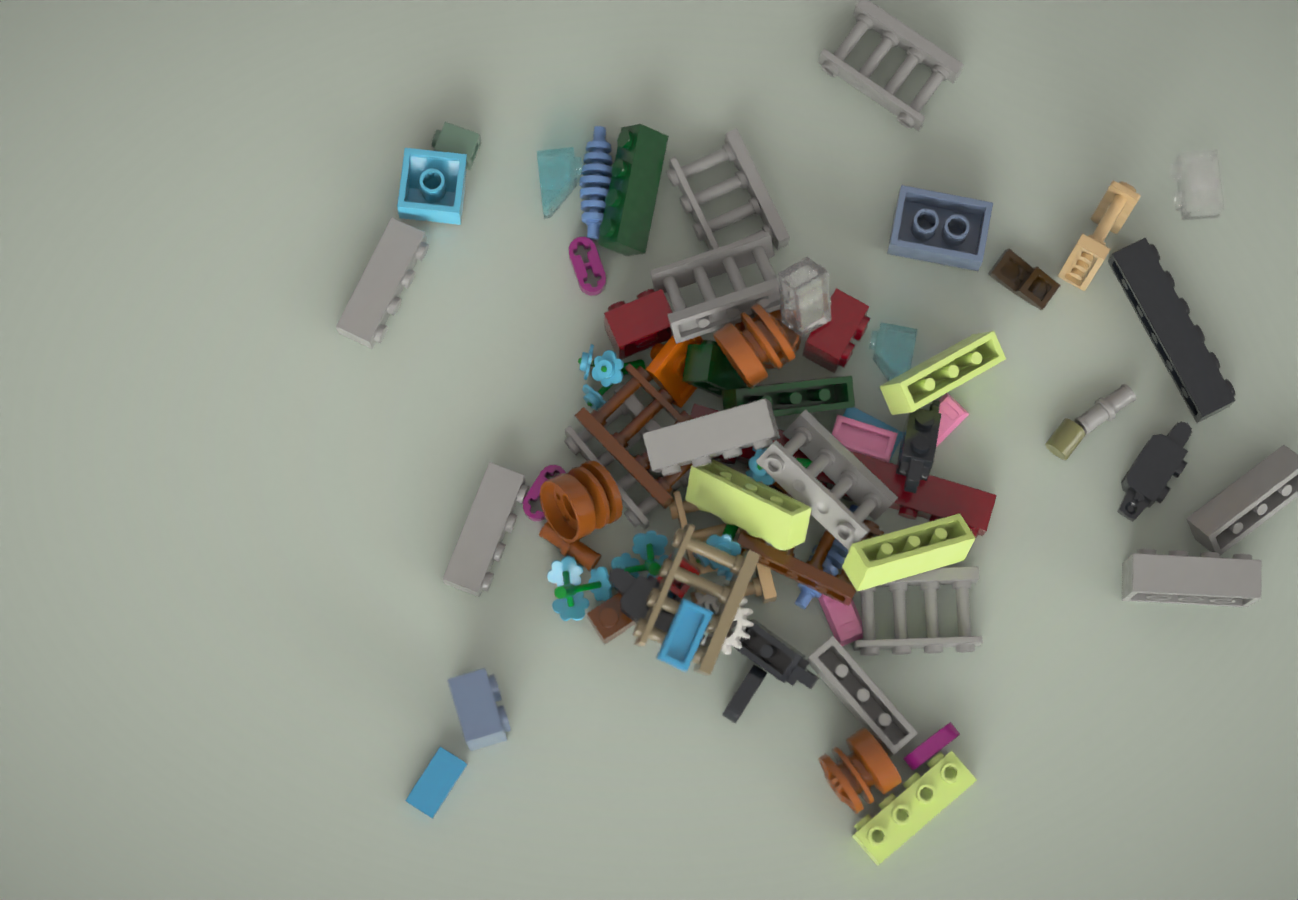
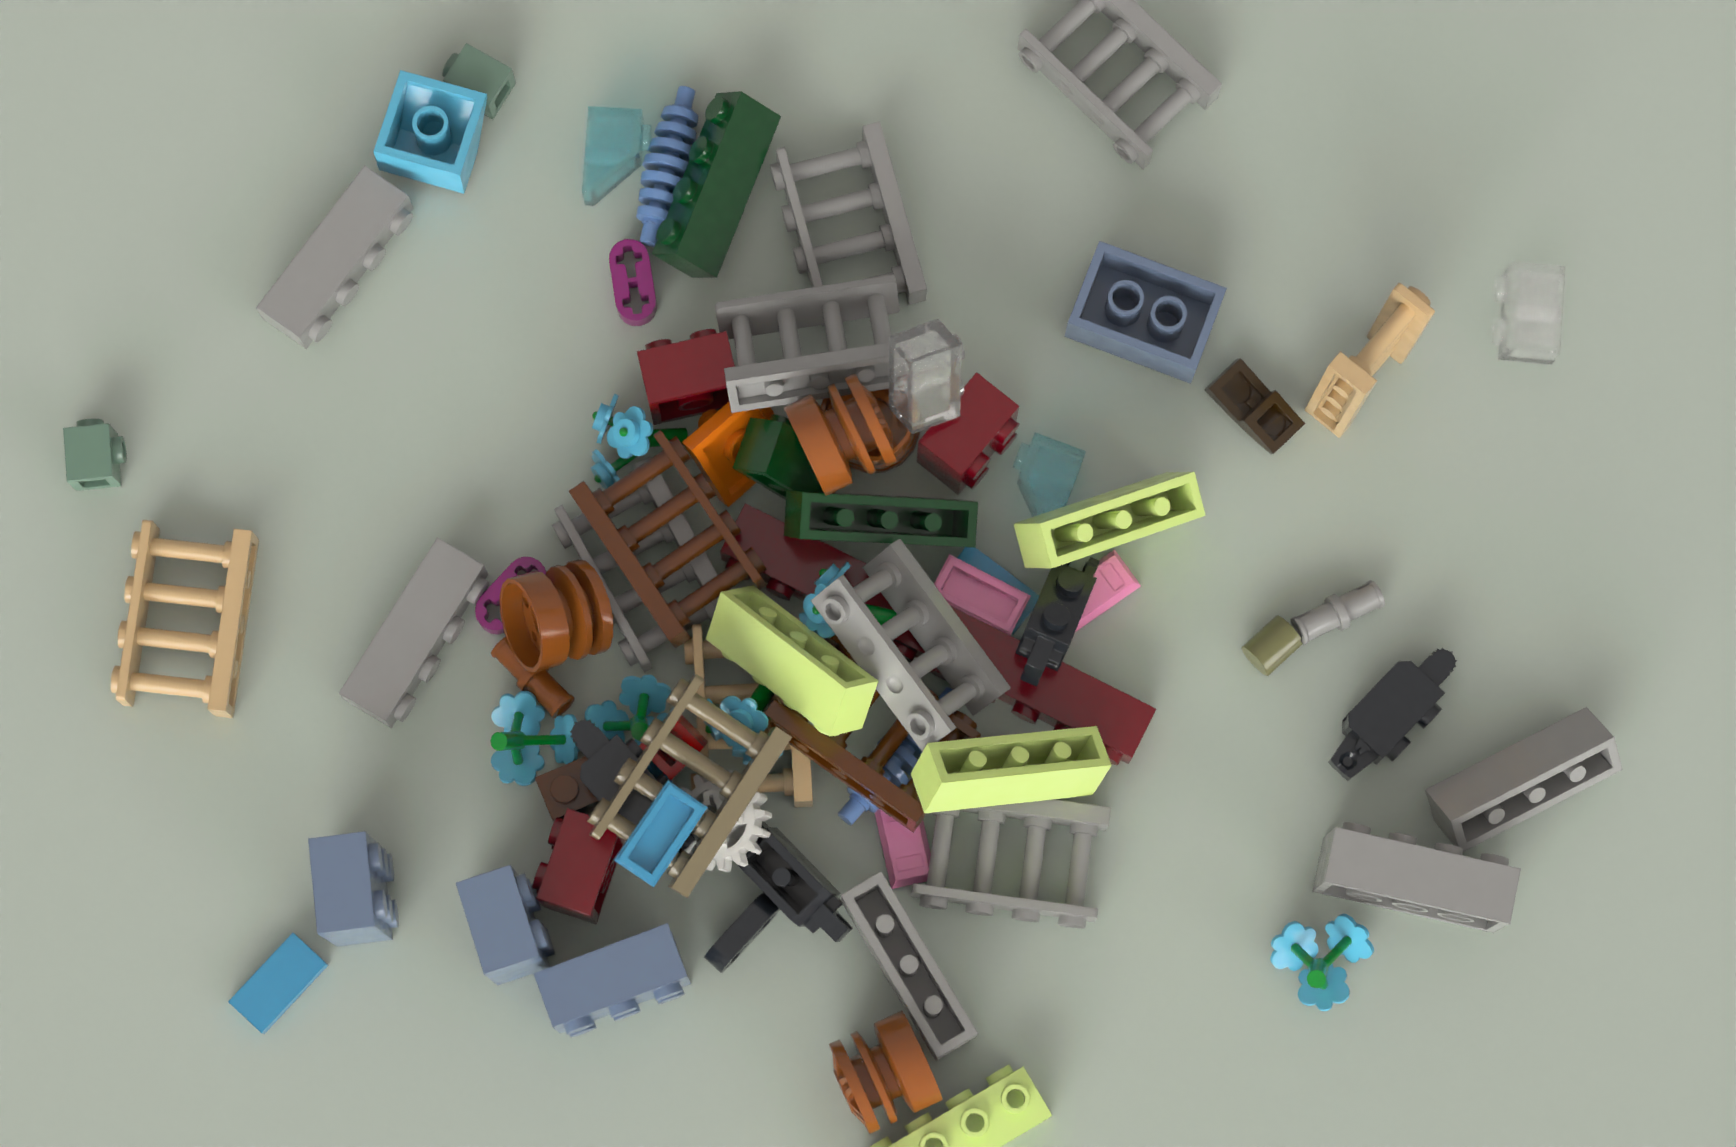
camera: 10 degrees right, 0 degrees up
(242, 445) = (93, 455): none -> sand green brick
(355, 560) = (223, 645): none -> tan fence
(586, 716) = (504, 926): none -> sand blue brick
(628, 669) = (578, 868): none -> dark red brick
(666, 740) = (613, 981): none -> sand blue brick
(711, 436) = (754, 554): light grey brick -> none
(931, 746) = (997, 1055): magenta beam -> none
(1139, 660) = (1321, 982): none -> medium azure plant
(1172, 330) = (1454, 514): black brick -> none

